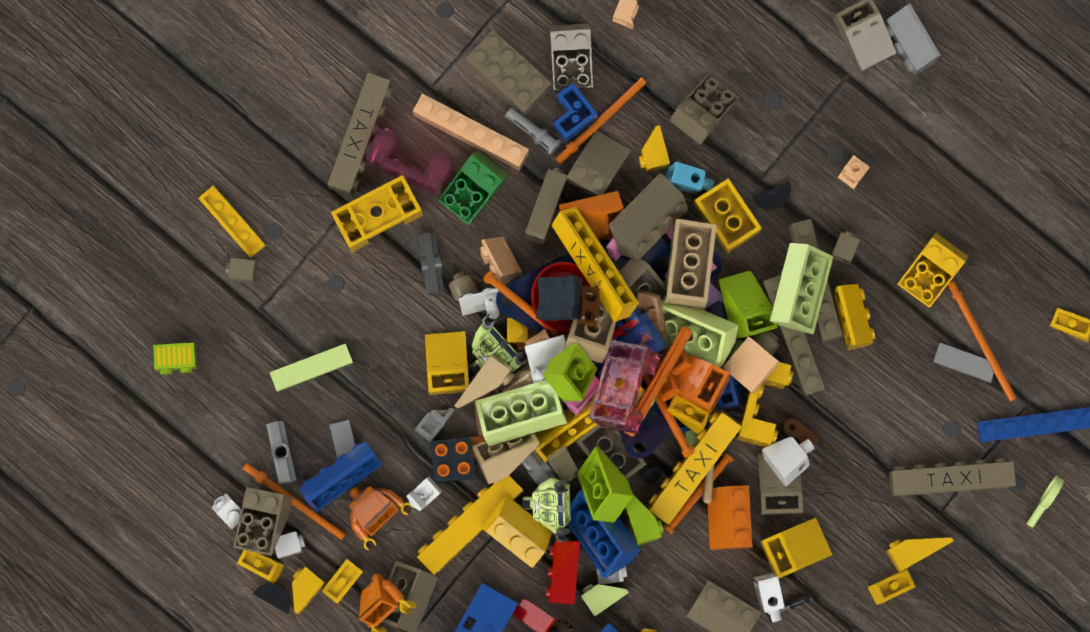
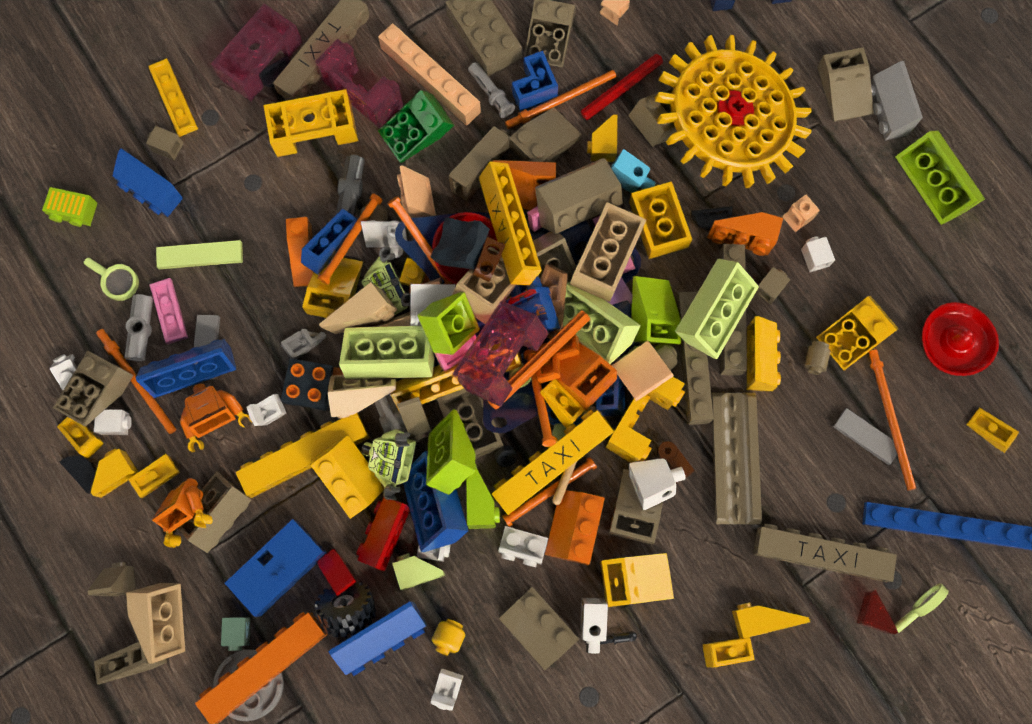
camera: 20 degrees right, 5 degrees down
(240, 317) = (145, 184): none -> blue slope
(244, 413) = (117, 281): none -> piece
(294, 177) = (241, 66): none -> clear pink plate
(301, 428) = (168, 311): none -> bright pink tile
(321, 170) = (271, 73): none -> black tile
(406, 339) = (298, 235): none -> orange slope
(432, 323) = (327, 241): none -> blue brick
(451, 316) = (324, 278): none -> orange bar
(655, 91) = (621, 87): none -> red axle
(688, 548) = (522, 546): none -> white bracket
(722, 102) = (733, 110): none -> yellow gear
(818, 203) = (756, 231): none -> orange slope
(854, 415) = (736, 459): none -> dark tan plate
(878, 206) = (817, 253): none -> white brick
(902, 303) = (817, 357): none -> dark tan brick
(972, 100) = (939, 177): none -> lime slope
(1008, 519) = (874, 614): none -> clear red slope
(1024, 250) = (959, 339): none -> red hat

